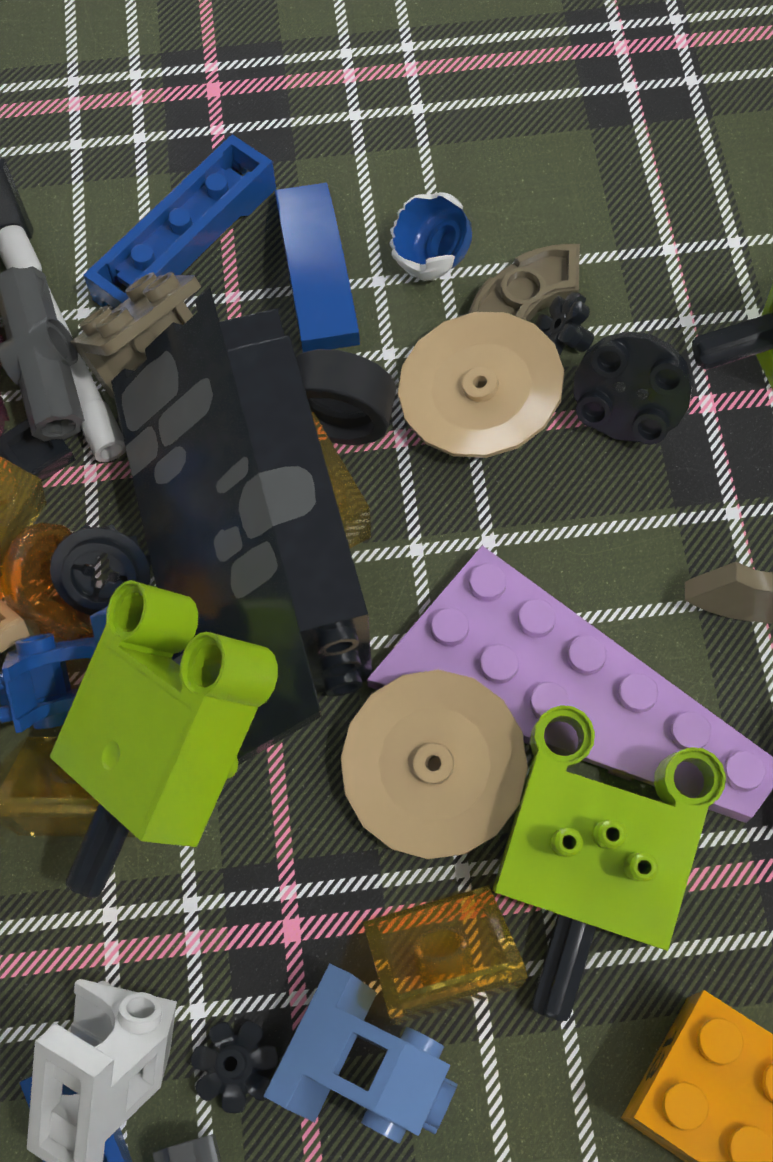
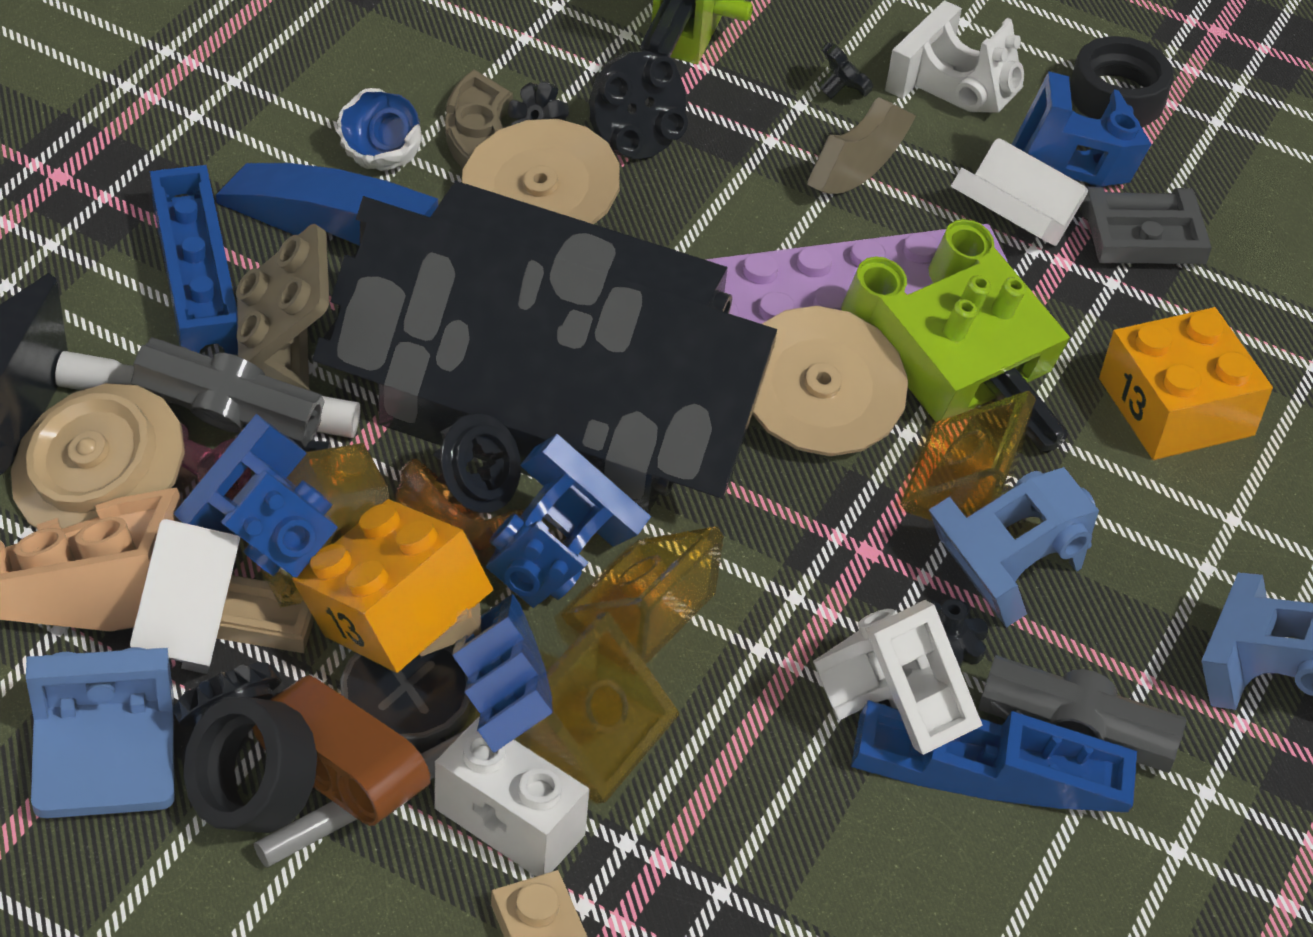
camera: 60 degrees left, 20 degrees down
(156, 733) = (689, 451): lime piece -> none

